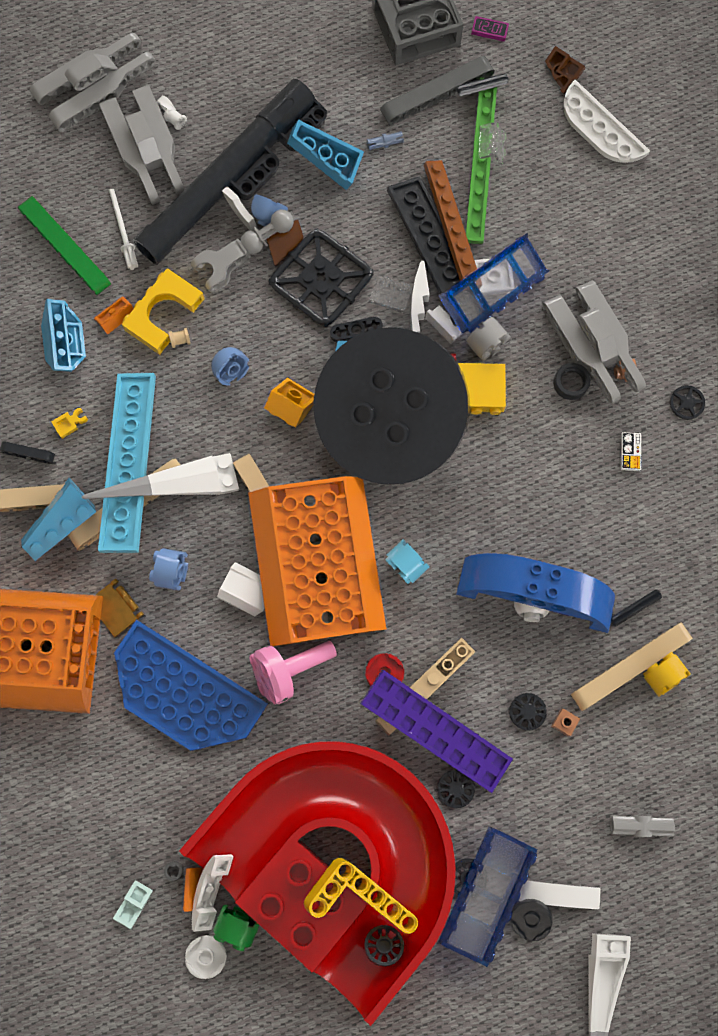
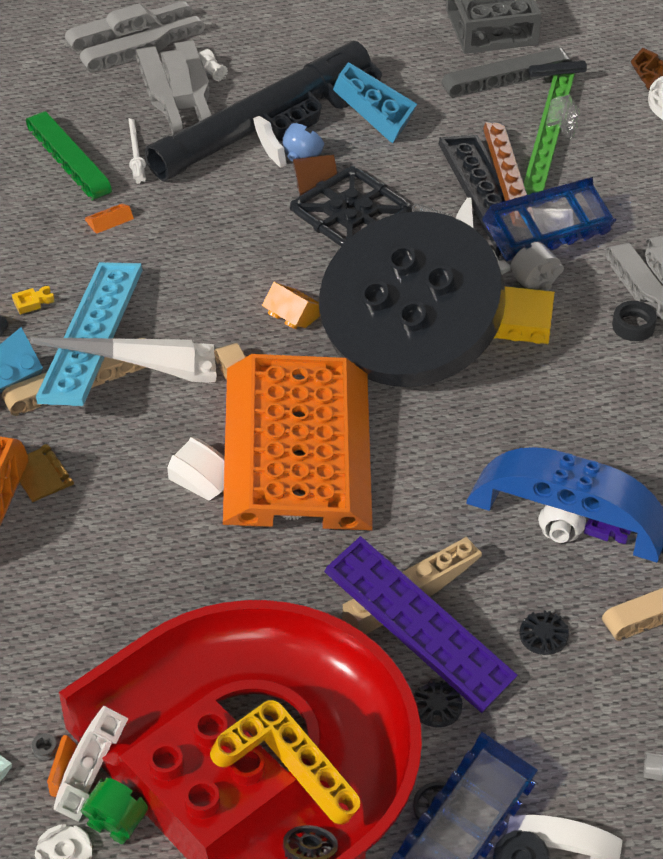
camera: 10 degrees right, 30 degrees down
(62, 336) = (45, 222): dark azure wedge -> none
(167, 287) = (174, 197): yellow arch -> none
(169, 569) = (115, 434): medium blue brick -> none
(179, 337) = (177, 240): tan bush -> none
(182, 693) = (104, 562): blue plate -> none
(229, 361) = (230, 260): medium blue cylinder -> none
(238, 251) = (247, 179): light grey piece -> none
(275, 674) = (223, 541): bright pink piece -> none
(385, 140) = (442, 106): sand blue pin -> none
(407, 561) = (408, 458): medium azure brick -> none
(490, 28) = (572, 34): tile -> none
(559, 724) = (592, 646): nougat plate -> none

